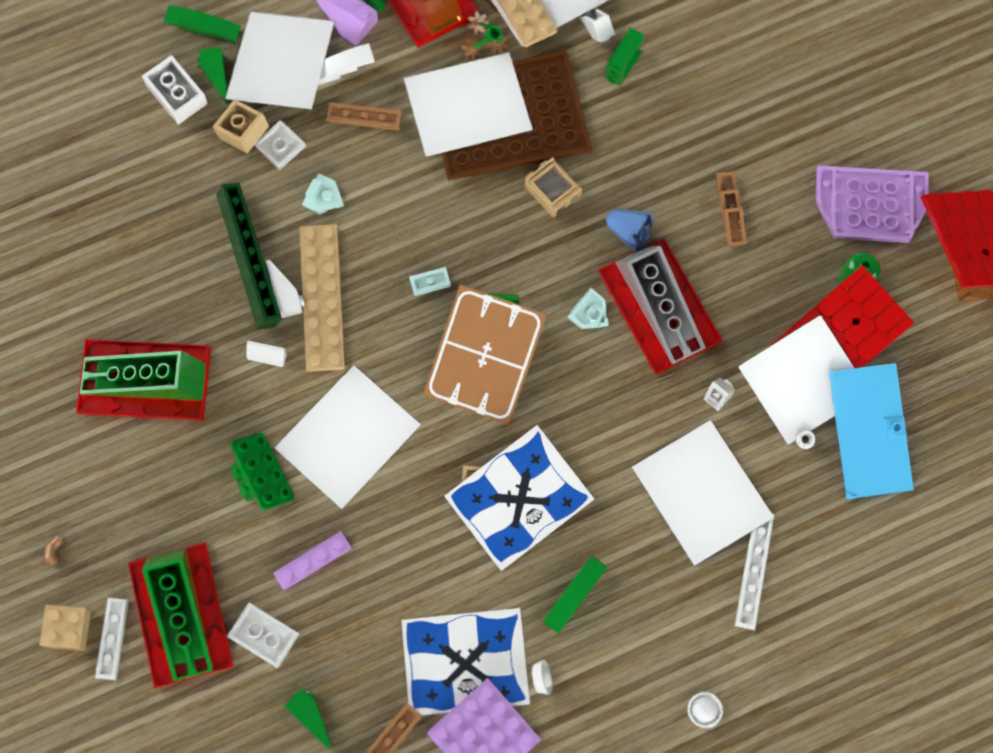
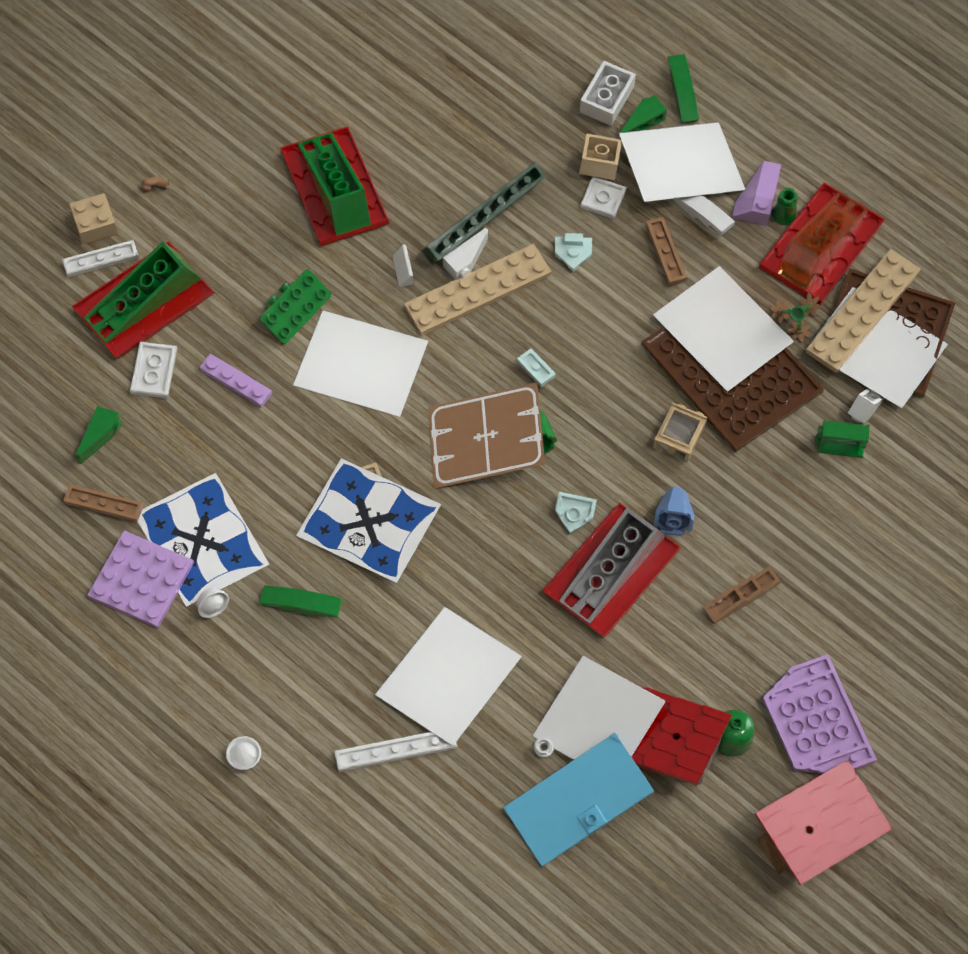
camera: 65 degrees right, 10 degrees down
(719, 393) = (549, 647): white slope -> none

